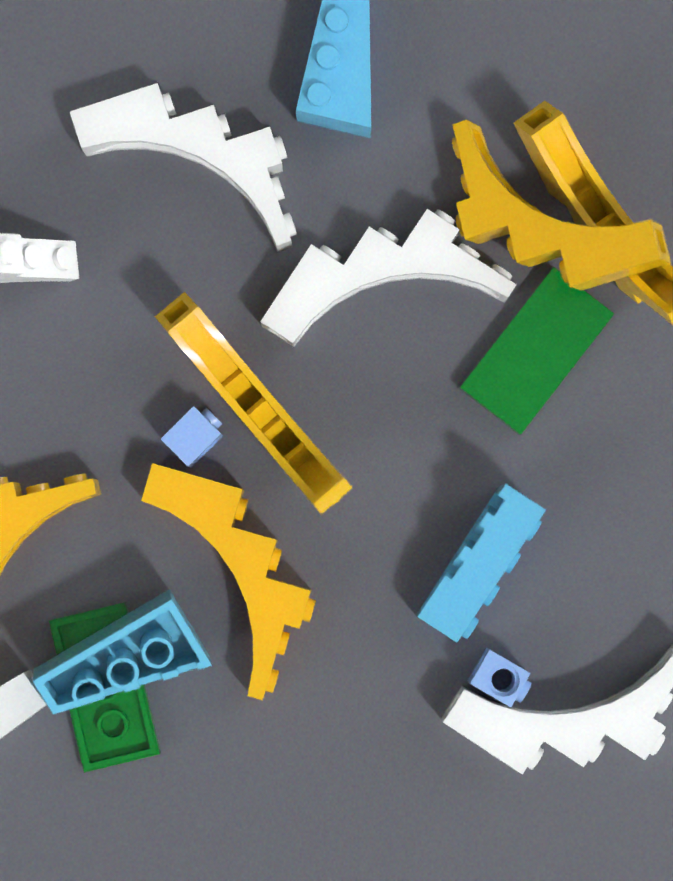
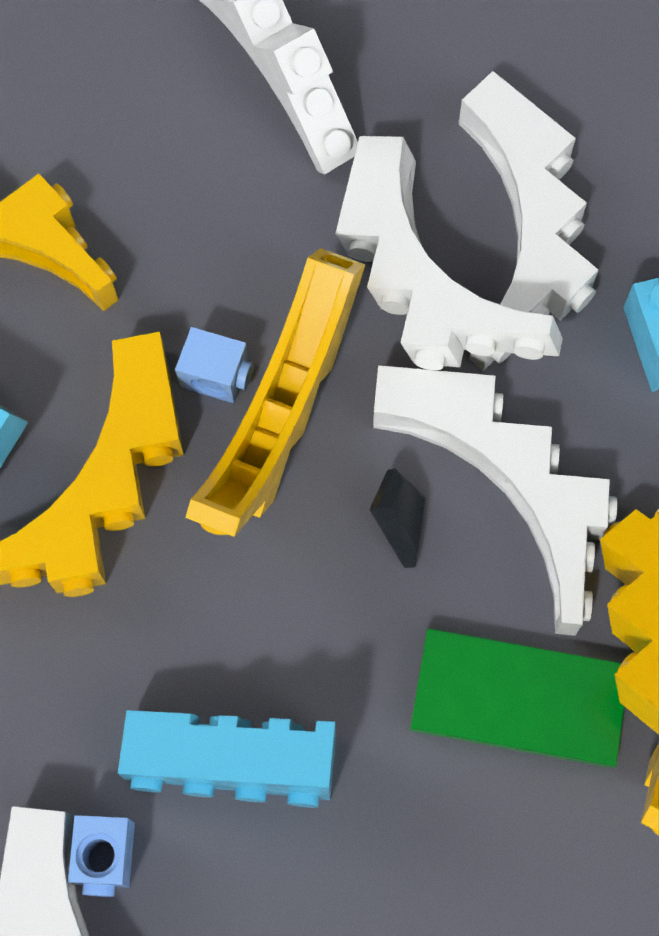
camera: 65 degrees right, 15 degrees down
(146, 259) = (440, 313): none -> white arch
(371, 363) = (399, 514): none -> black piece

